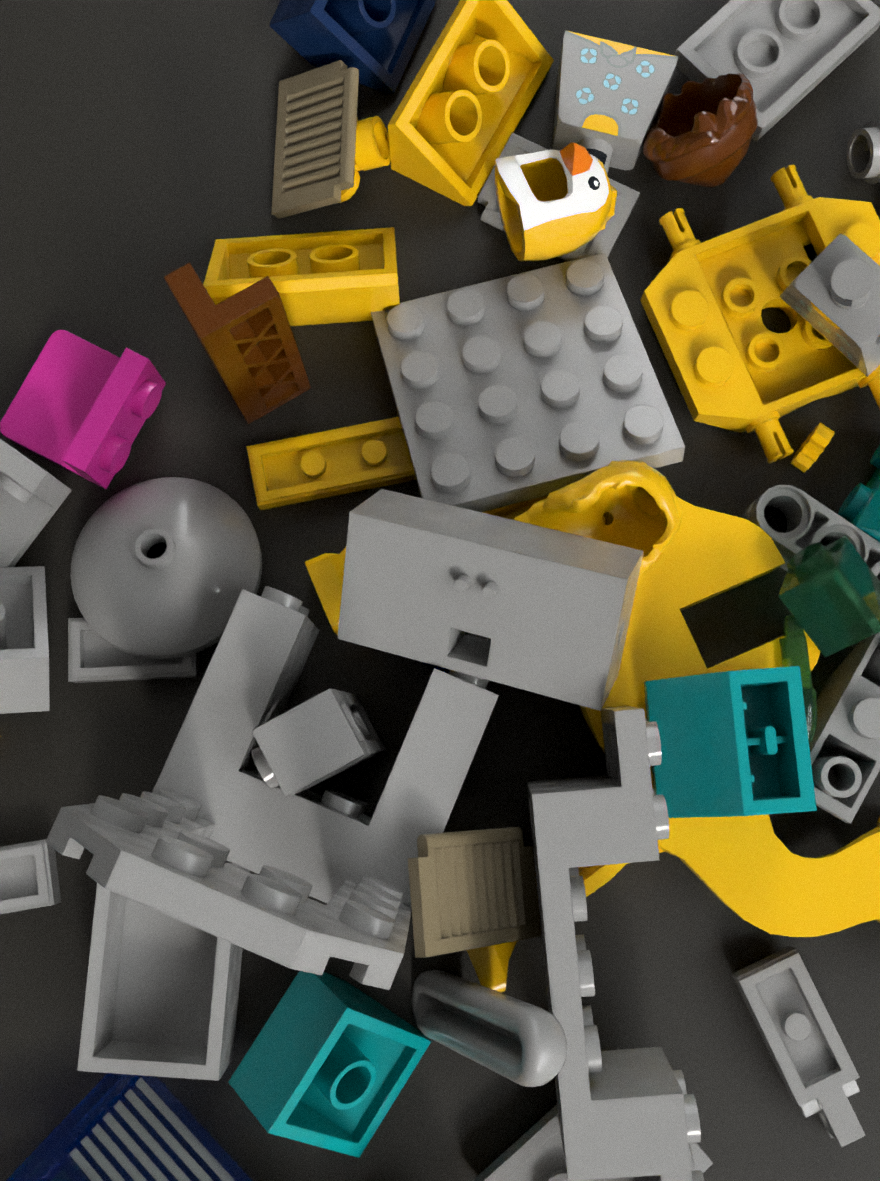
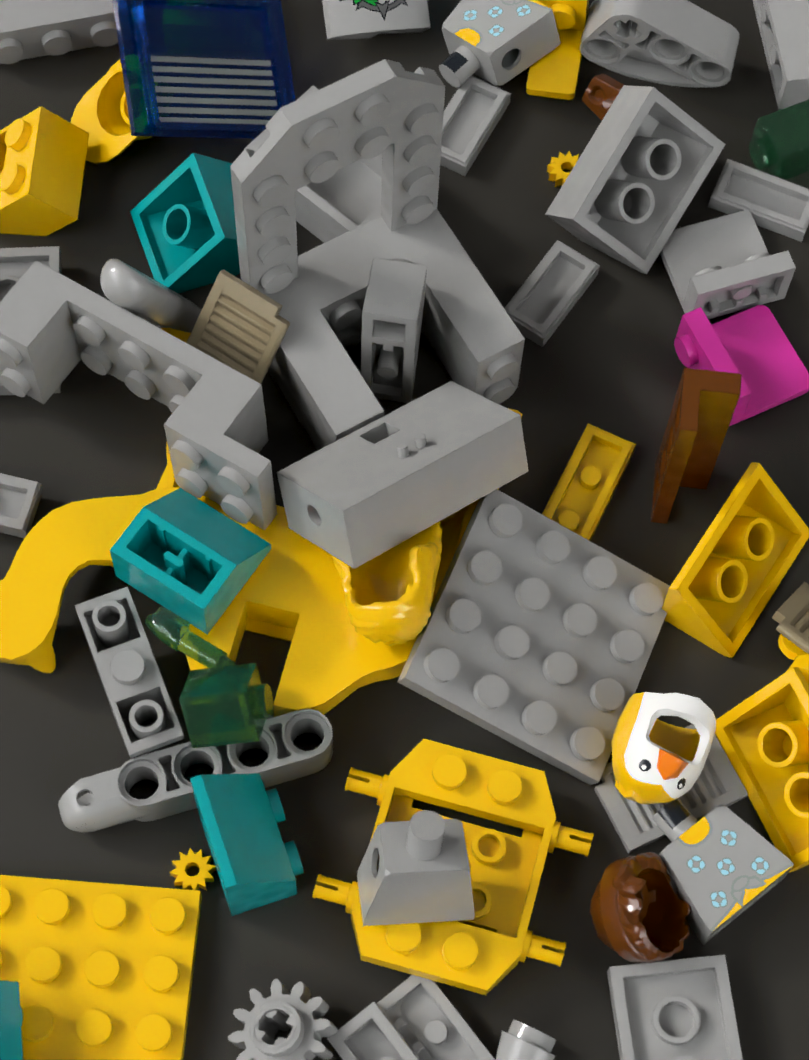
camera: 125 degrees right, 15 degrees down
(172, 601) = (575, 365): light grey dish -> none
(812, 447) = (337, 812): yellow piece -> none

